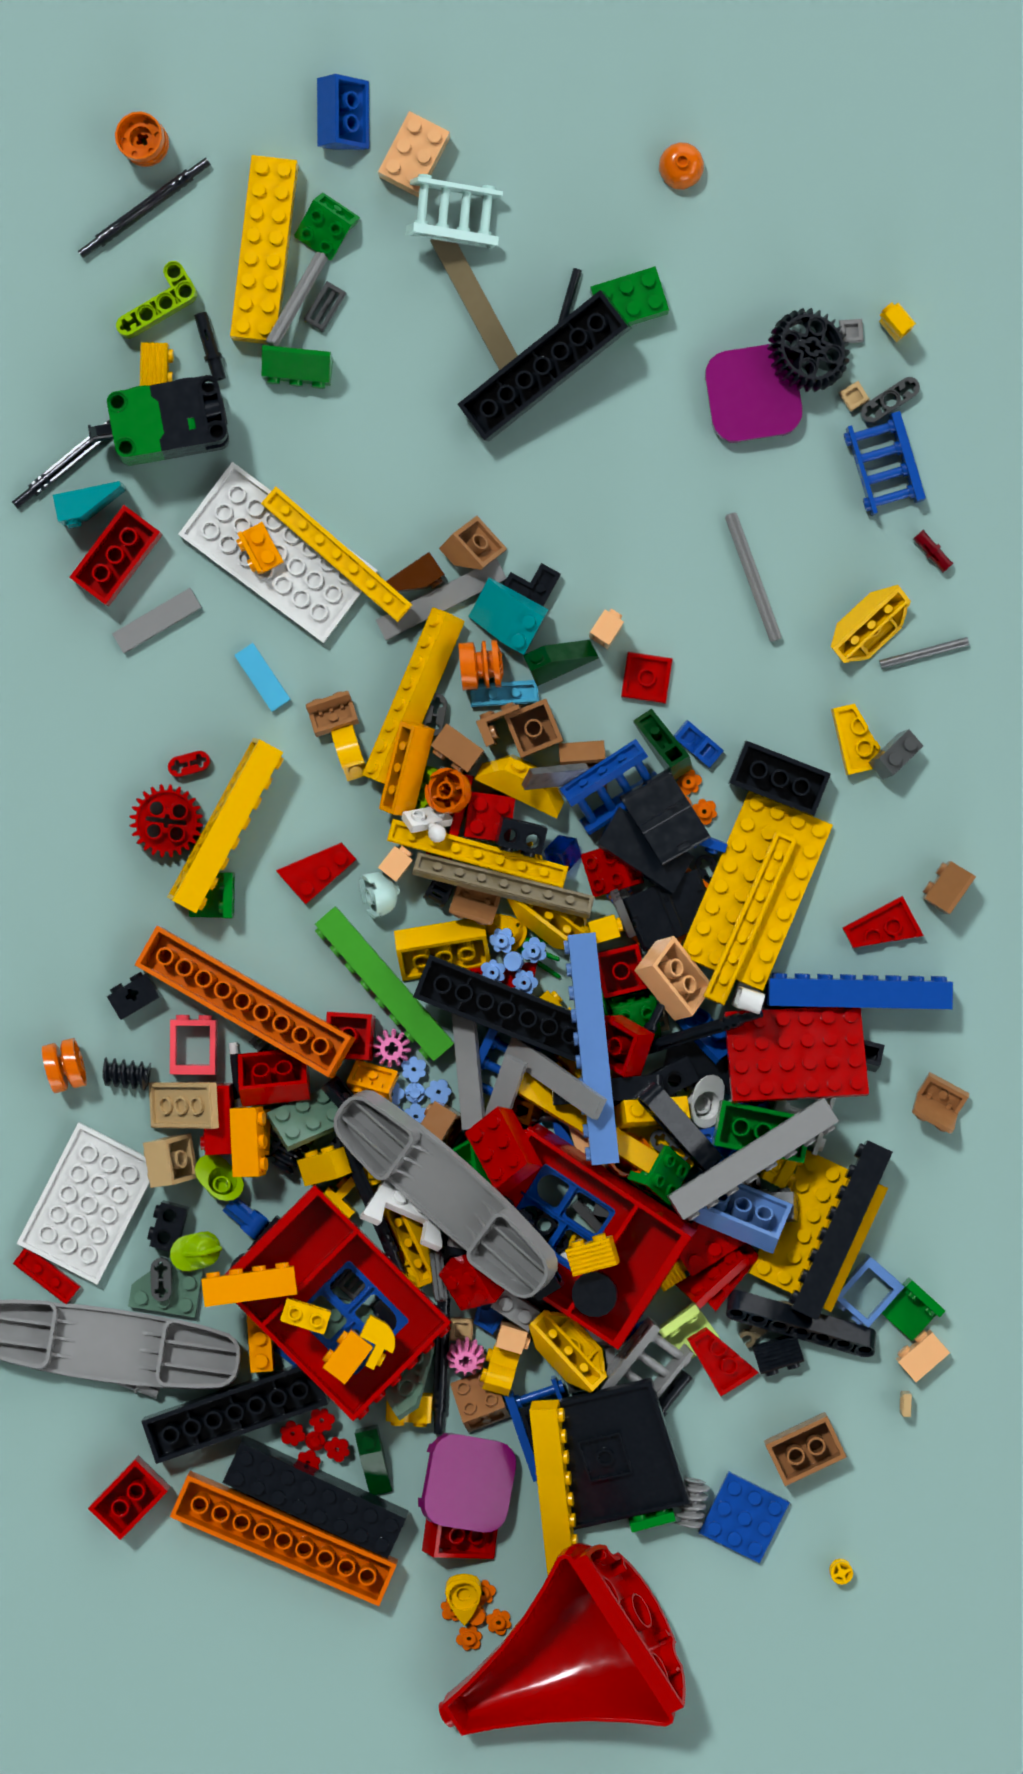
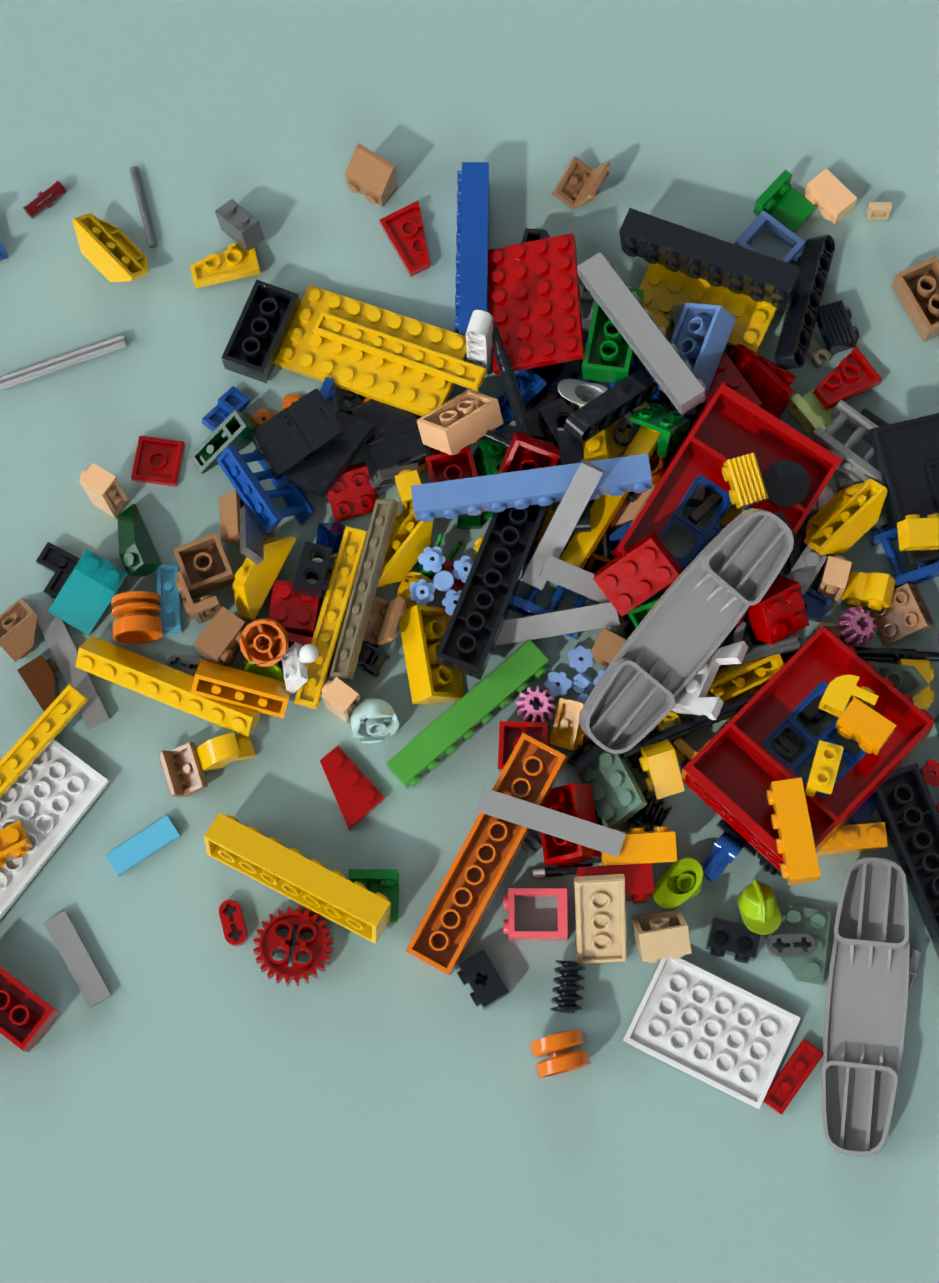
camera: 85 degrees left, 15 degrees down
(267, 1061) = (551, 822): none -> light grey tile

